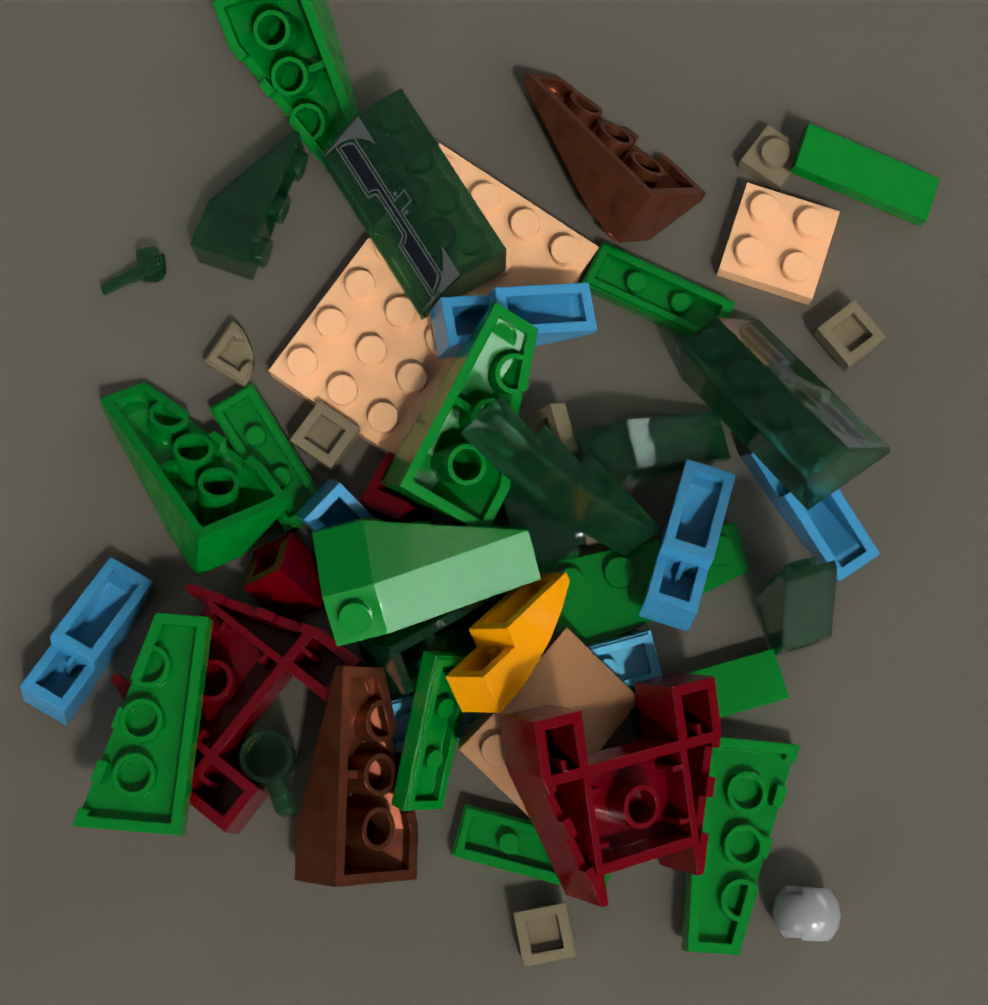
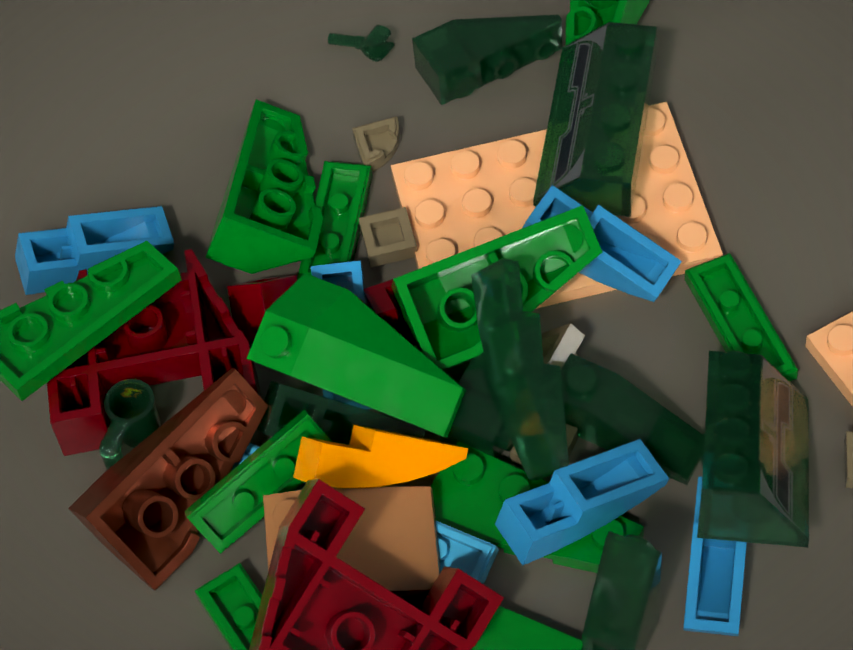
camera: 50 degrees right, 20 degrees down
(616, 178) = (784, 207): copper wedge -> none

